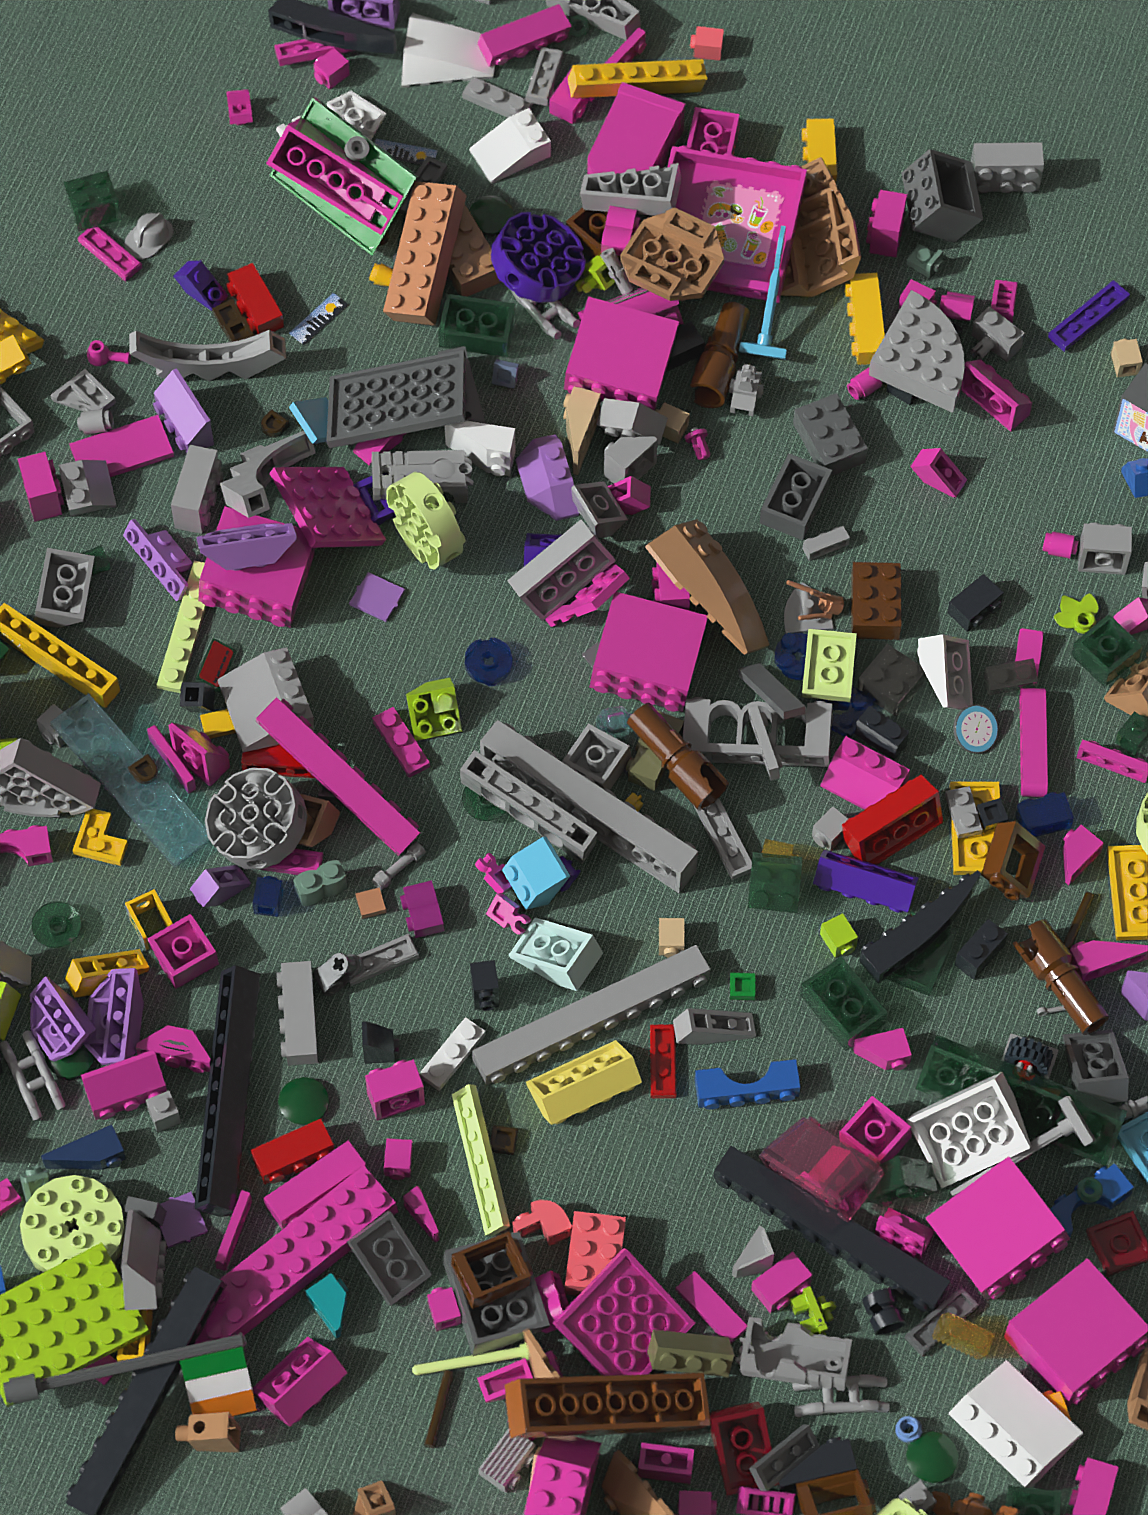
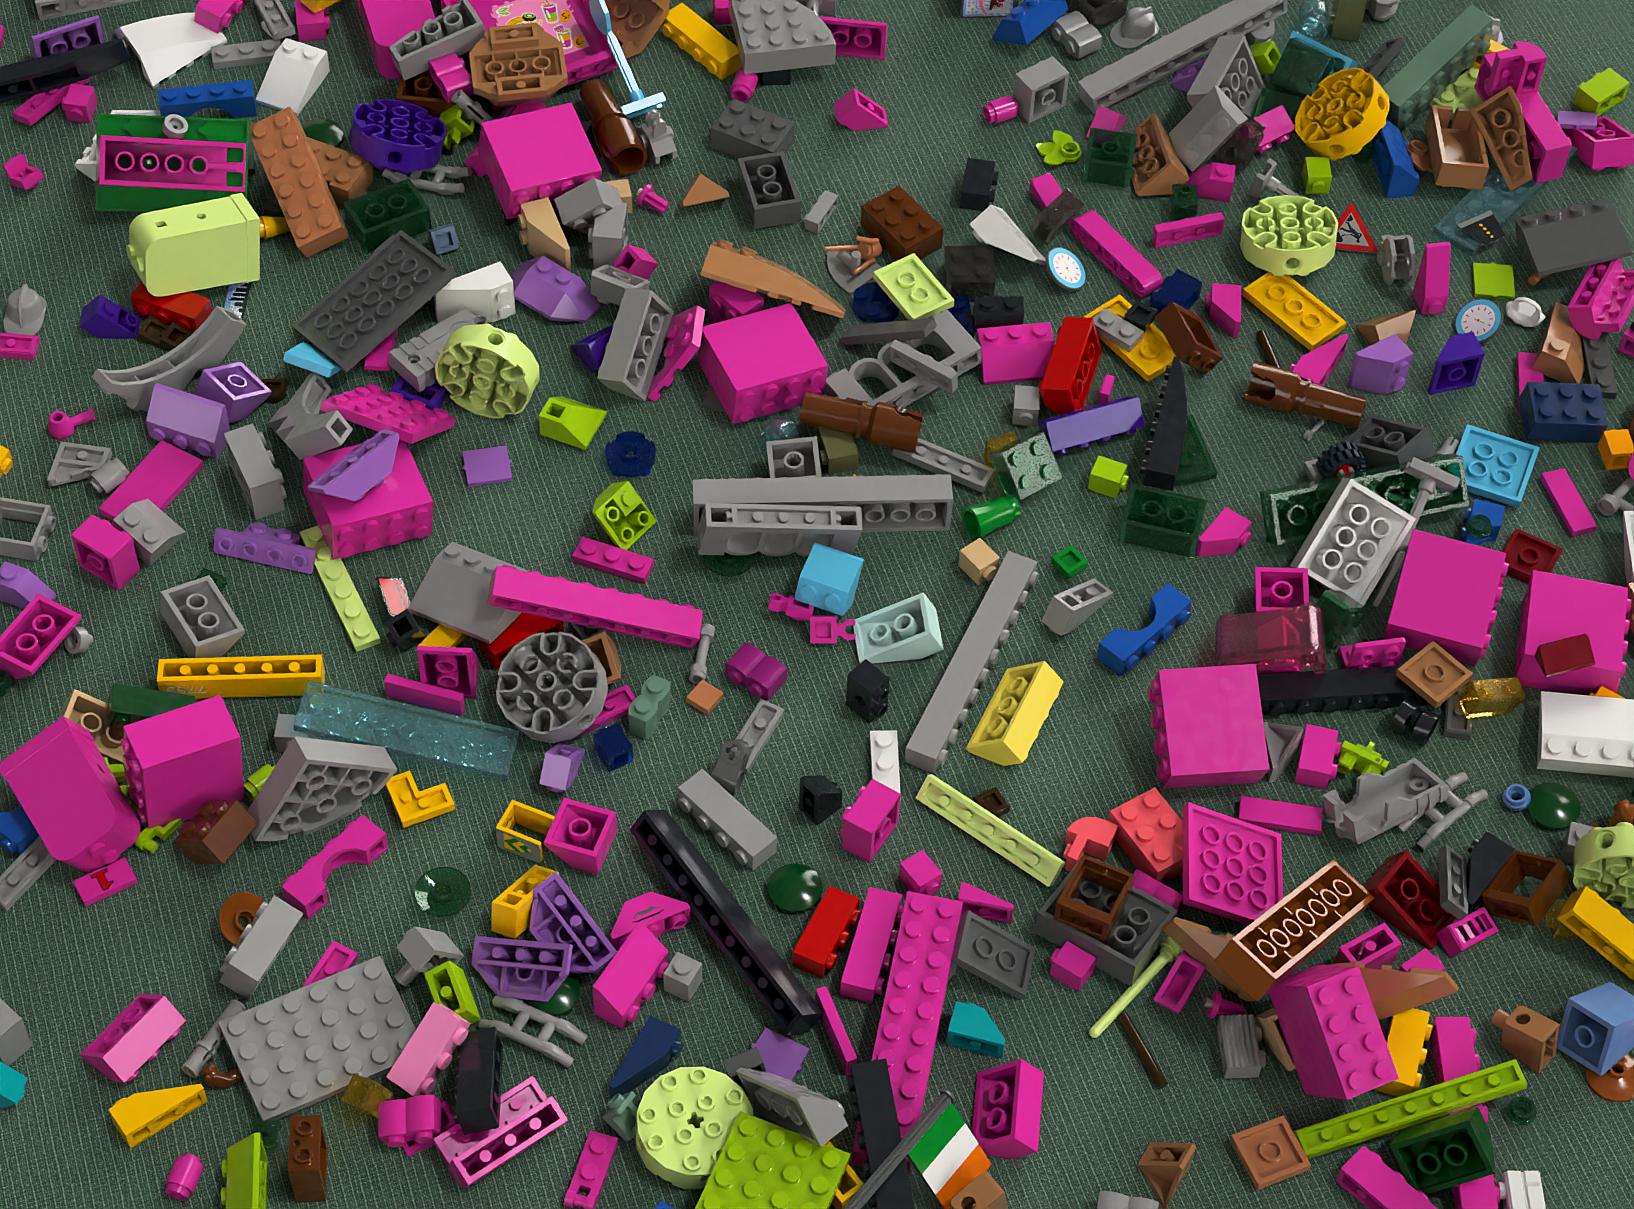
camera: 40 degrees left, 10 degrees down
(144, 770) = (414, 712): dark brown tile -> none
(238, 407) = (234, 387): none -> medium lavender slope
(296, 264) = (196, 246): none -> yellowish green piece
(448, 138) = (233, 97): none -> blue arch
(467, 600) = (570, 421): none -> lime slope
(663, 1061) = (1060, 659): red tile -> none
(690, 1353) = (1305, 854): olive brick -> none
(706, 1199) = (1208, 726): none -> dark pink brick
(715, 904) = (990, 515): none -> green plant
(743, 463) = (702, 191): none -> medium nougat slope
(907, 860) = (1106, 389): none -> dark pink tile
(927, 1285) = (1434, 674): none -> medium nougat plate
(981, 949) = (1224, 417): black brick -> none
(1036, 1347) = (1565, 655): none -> dark red slope

